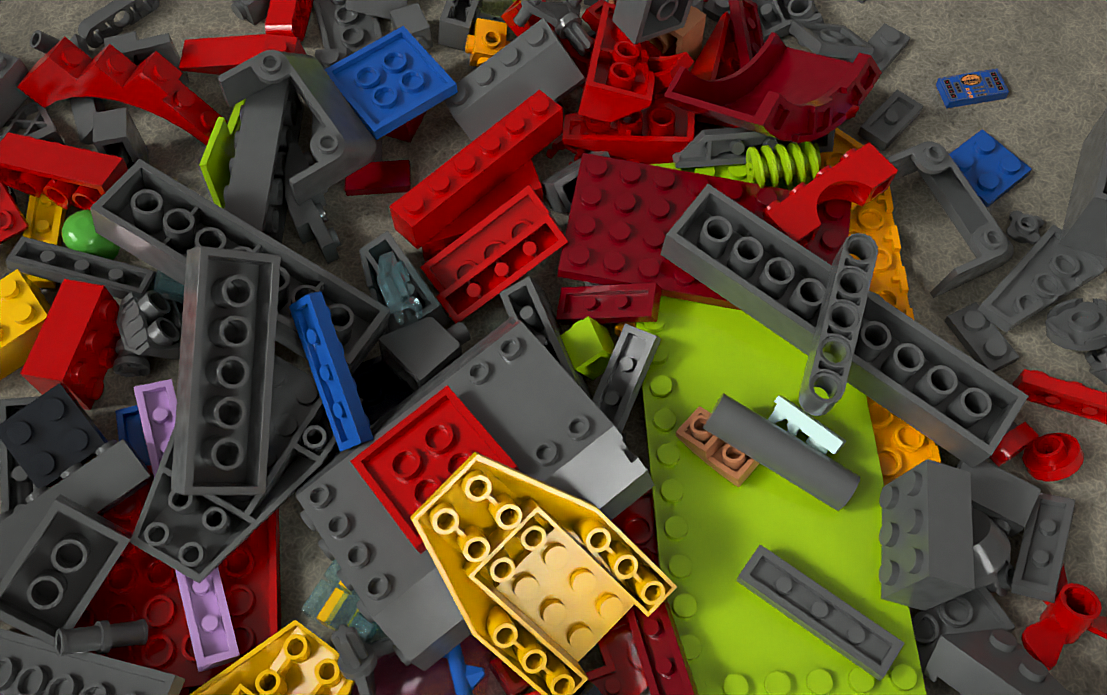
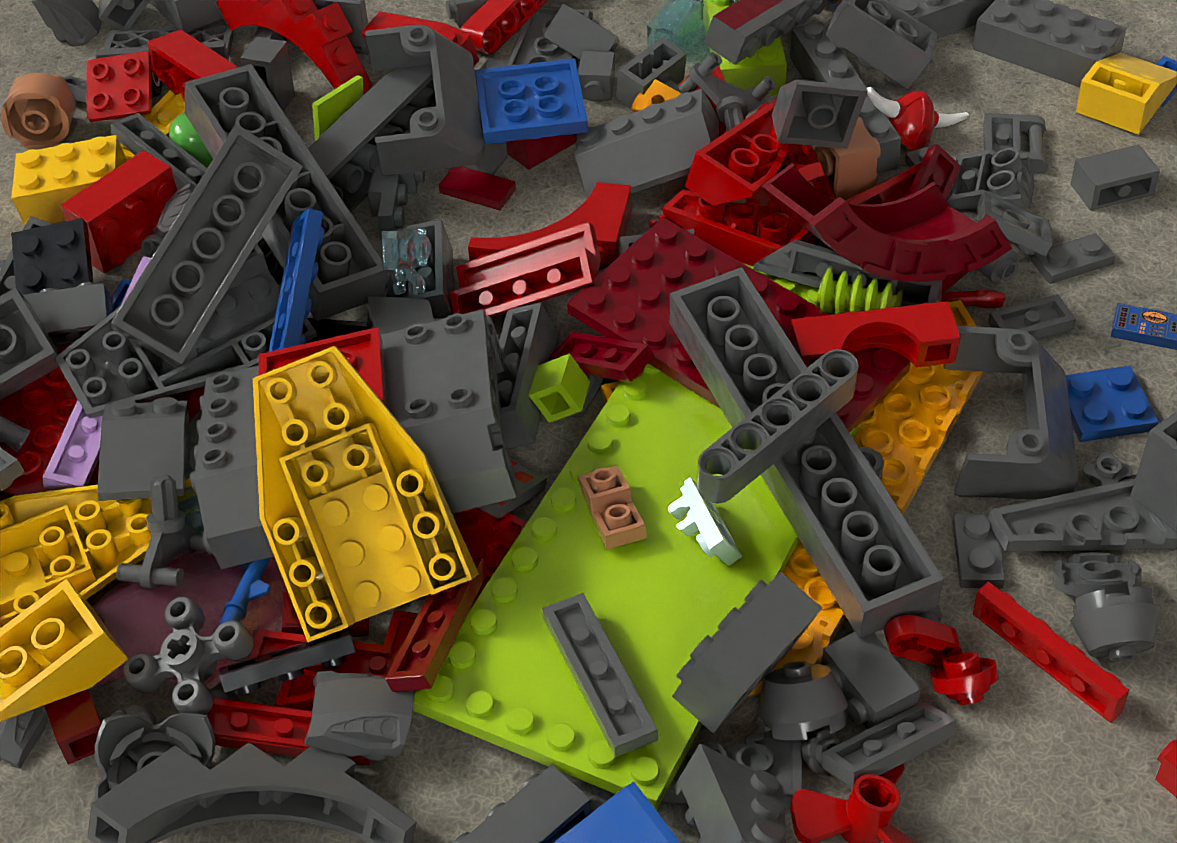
camera: 30 degrees right, 15 degrees down
(282, 596) = (142, 444): none -> dark grey slope
(477, 169) = (560, 199): red brick -> none
(625, 374) = (565, 423): dark grey plate -> none
(782, 452) = (661, 528): dark grey brick -> none

